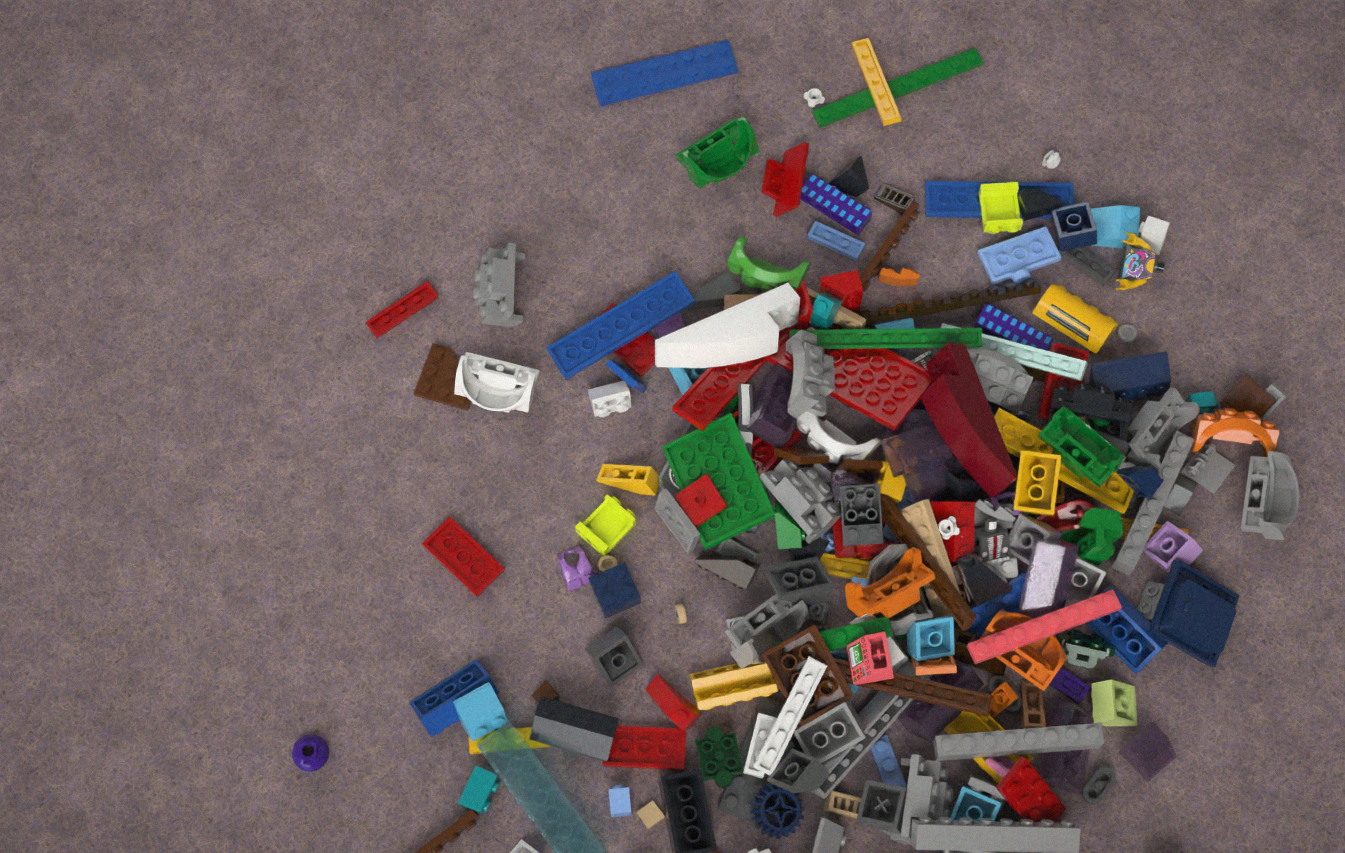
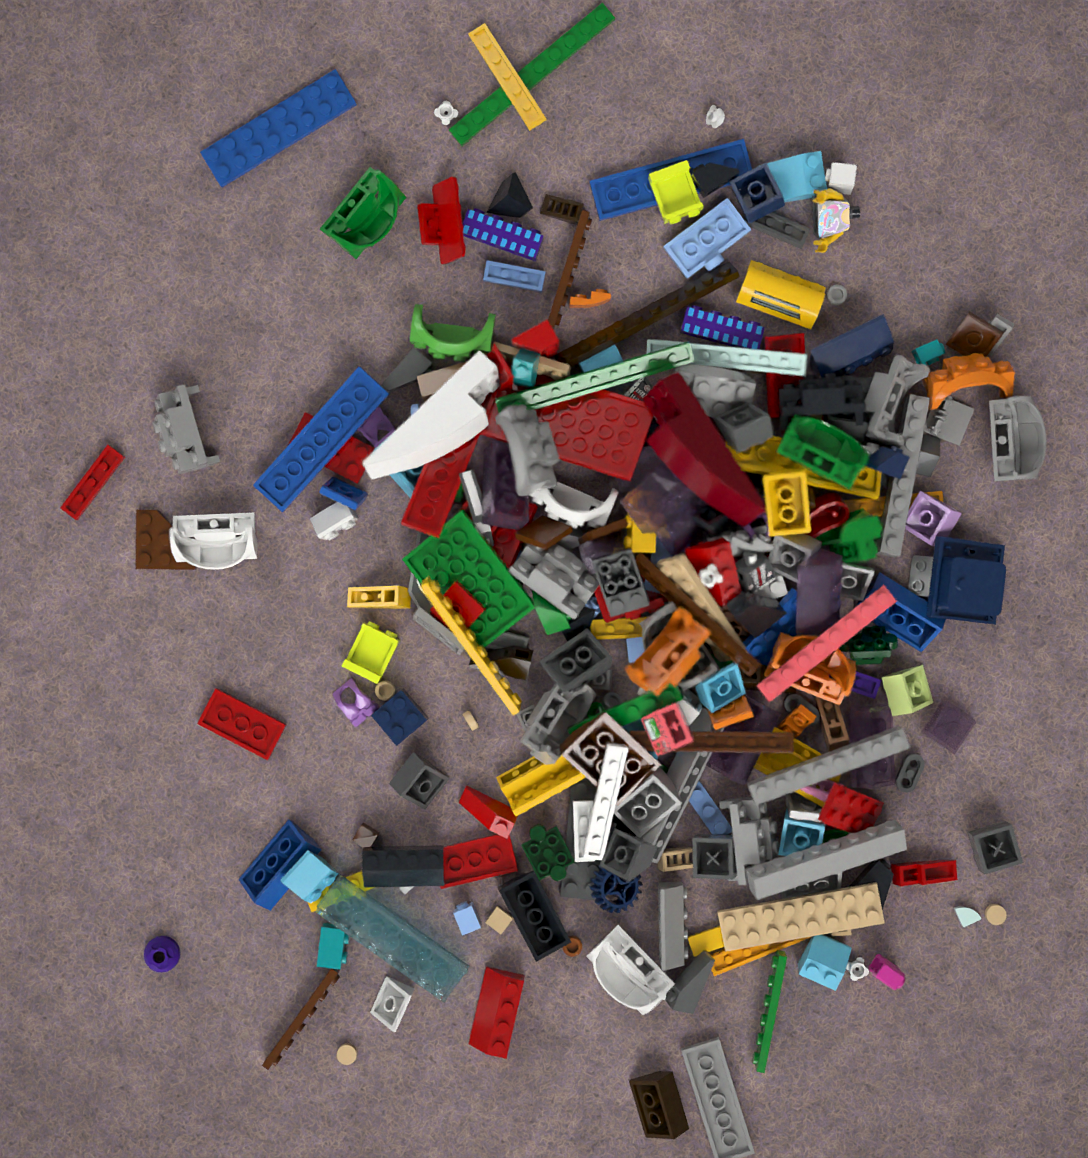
camera: 20 degrees left, 20 degrees up
(708, 543) = (467, 639): none -> yellow plate
(1014, 410) = (744, 427): none -> dark grey slope

